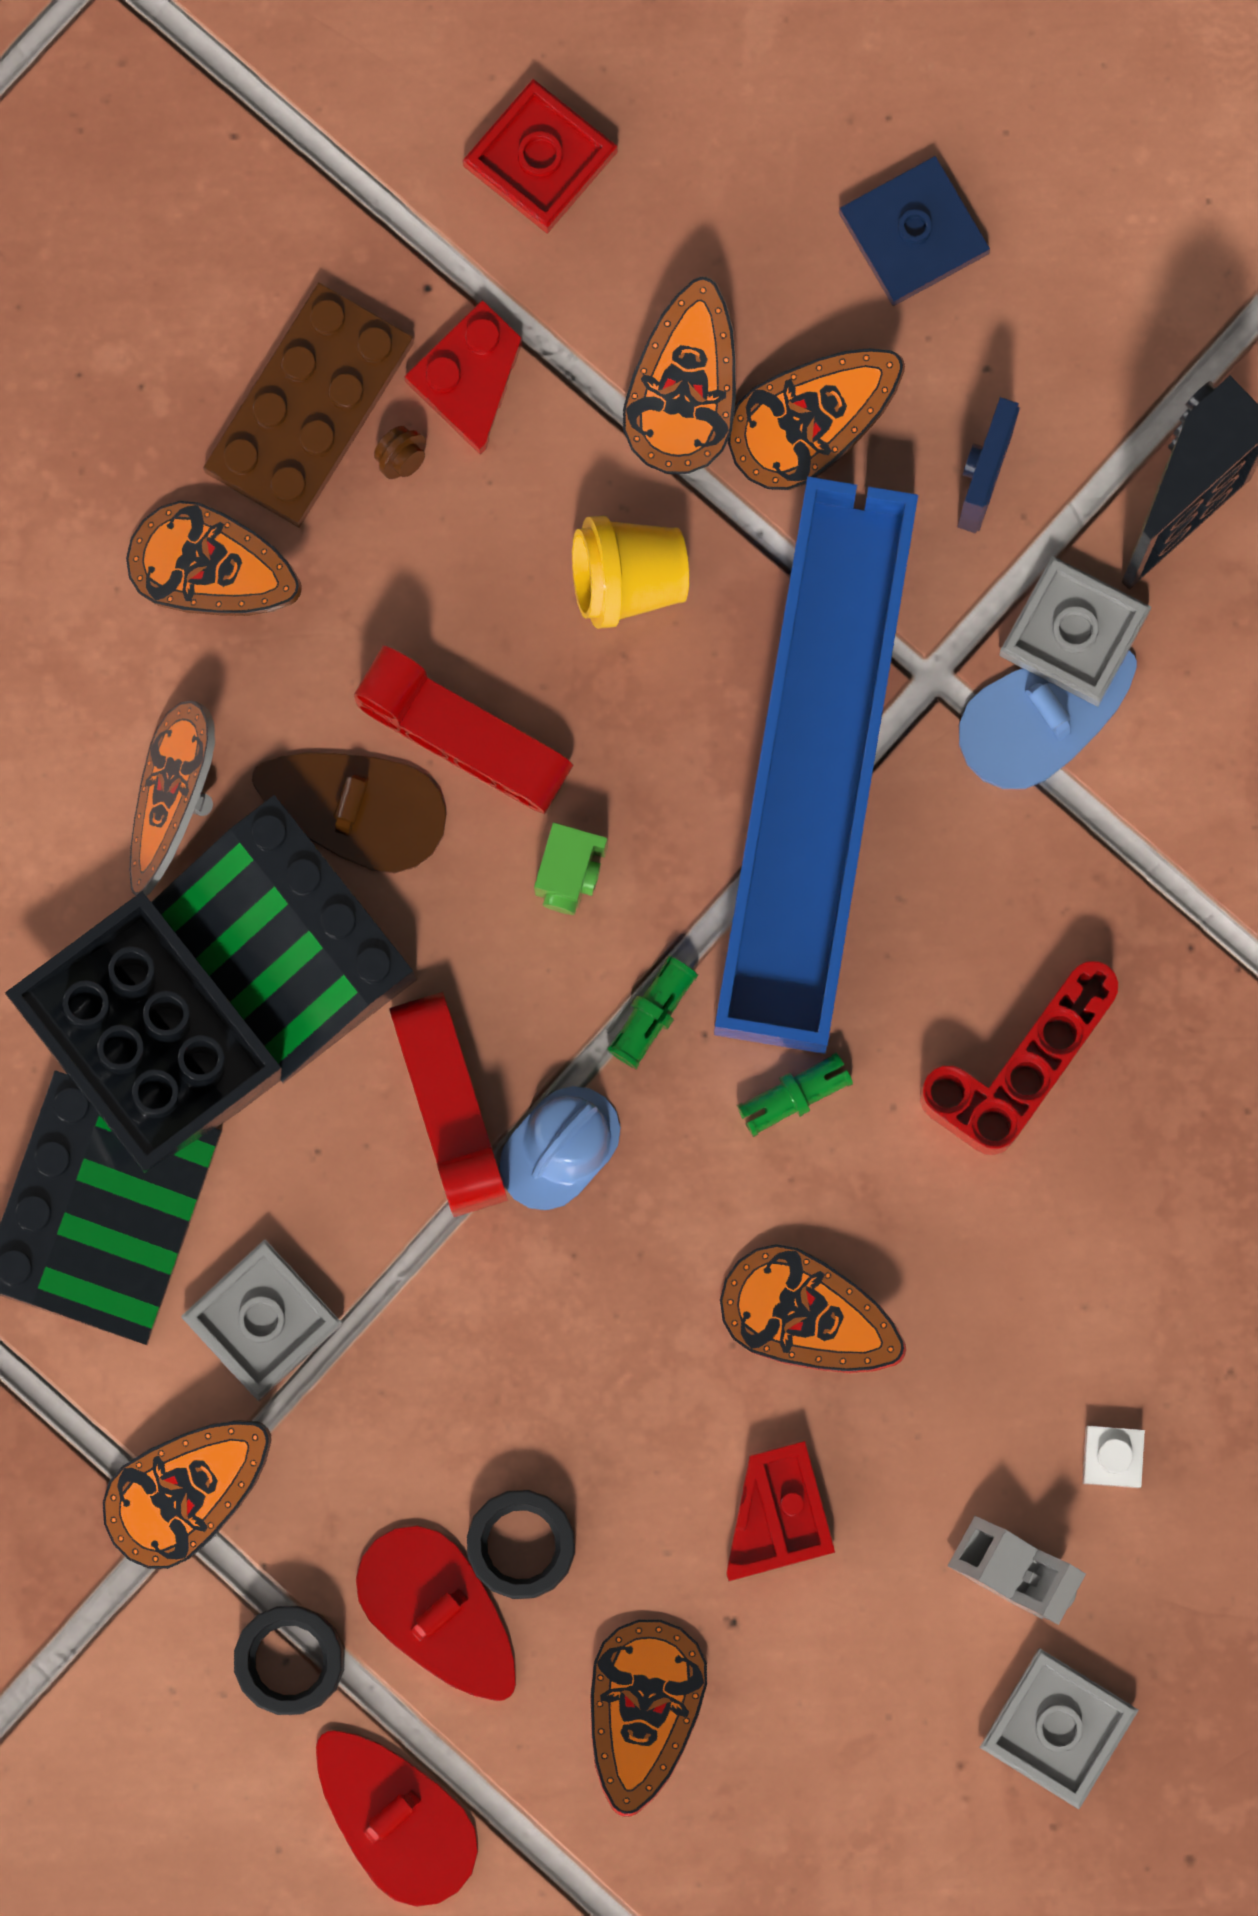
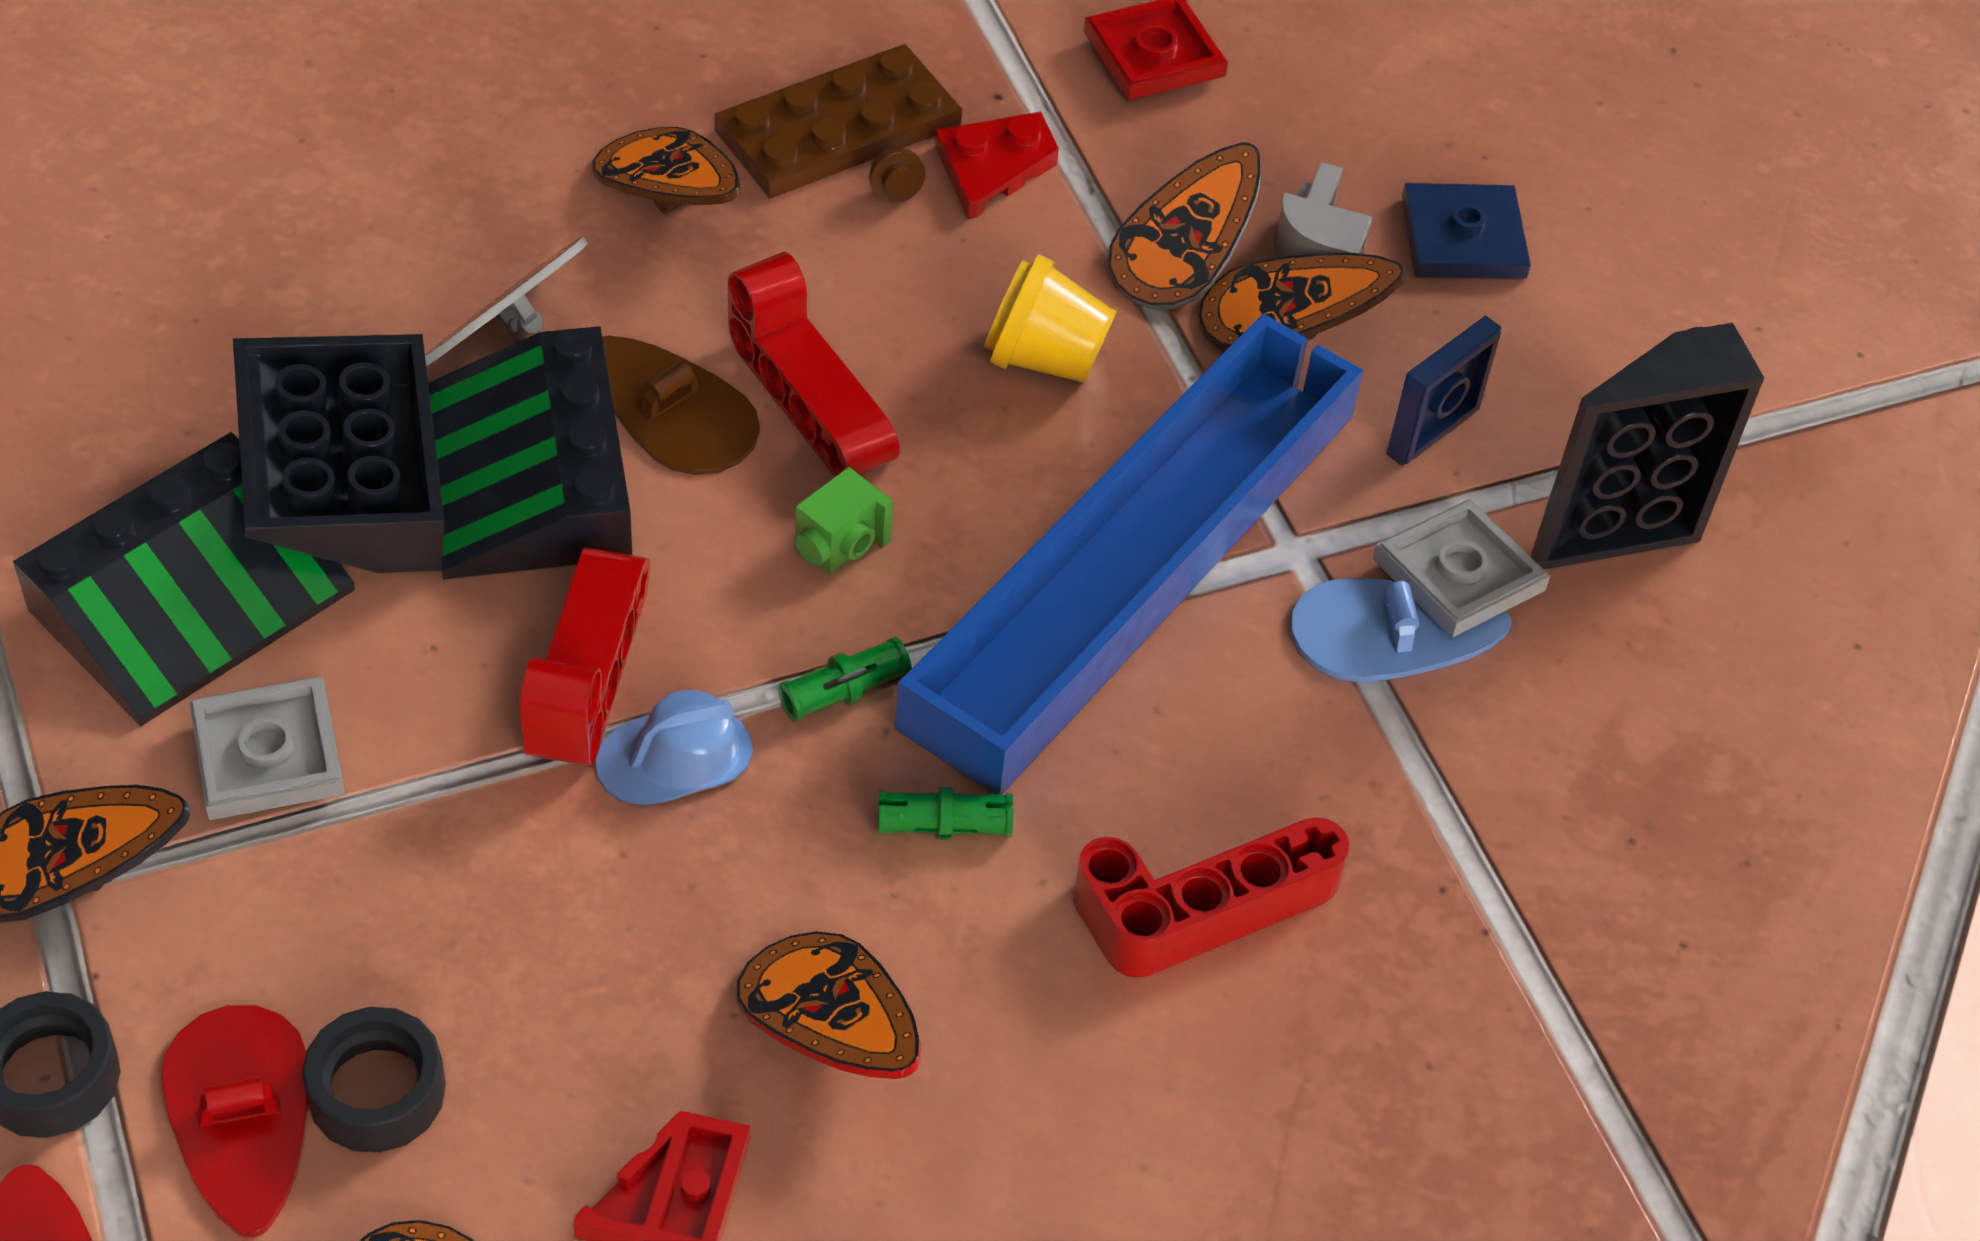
camera: 20 degrees right, 30 degrees down
(792, 326) = (1314, 224): none -> light grey brick

